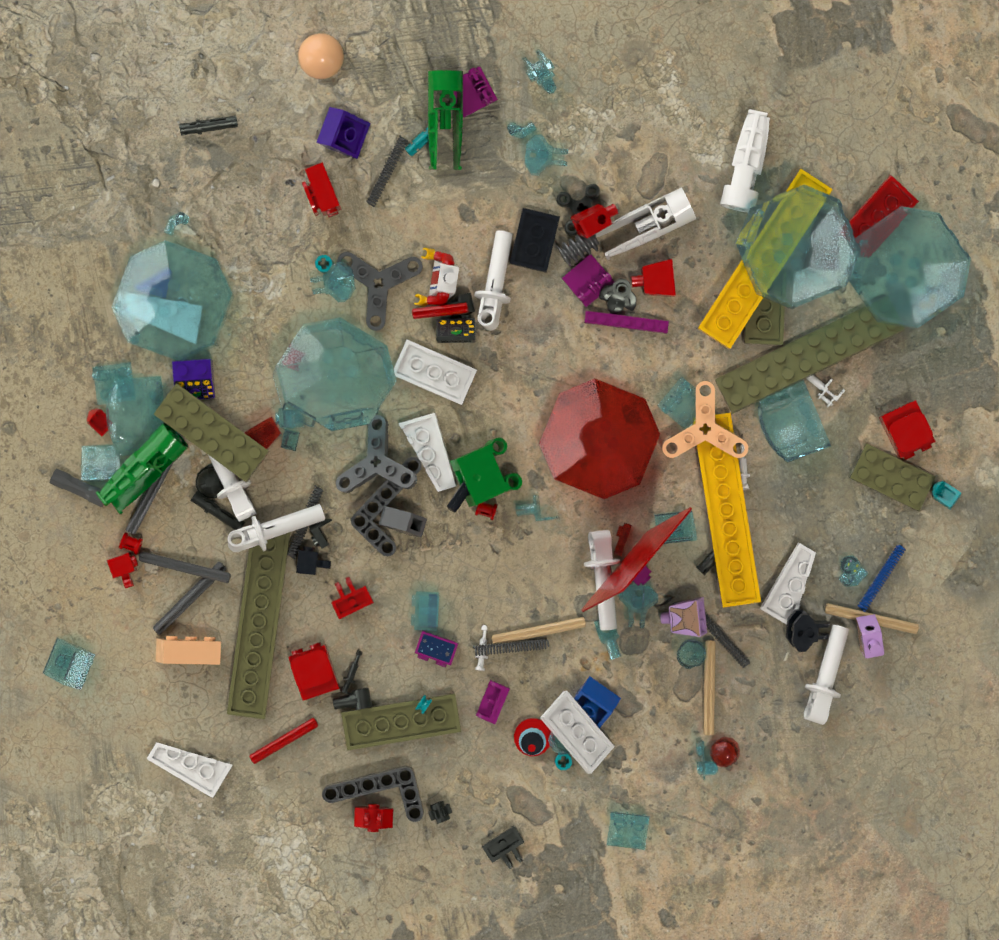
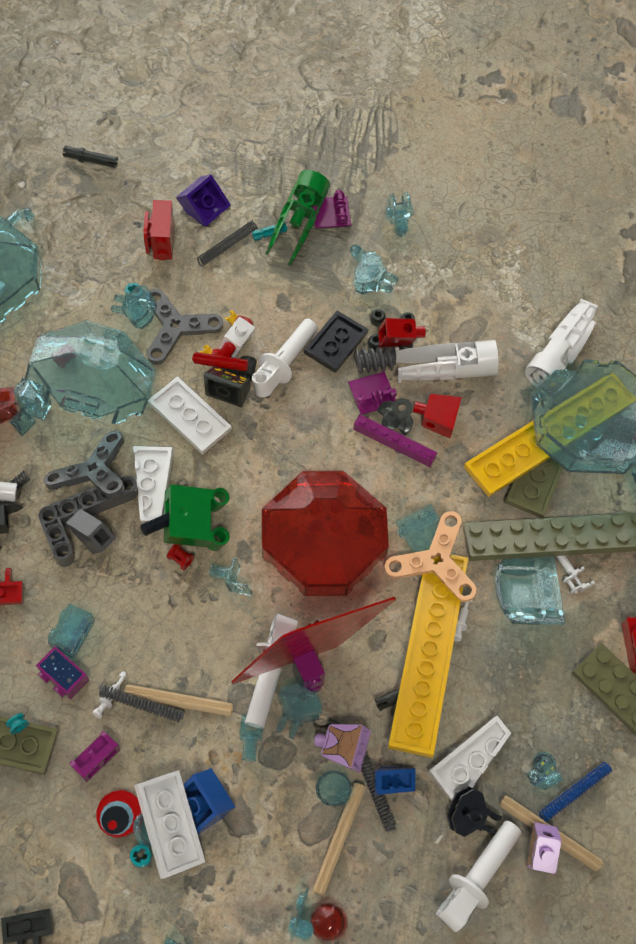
camera: 20 degrees right, 25 degrees down
(320, 56) = (213, 143): light nougat piece -> none
(684, 532) = (367, 652): clear light blue slope -> none
(735, 626) = (394, 780): none -> blue slope

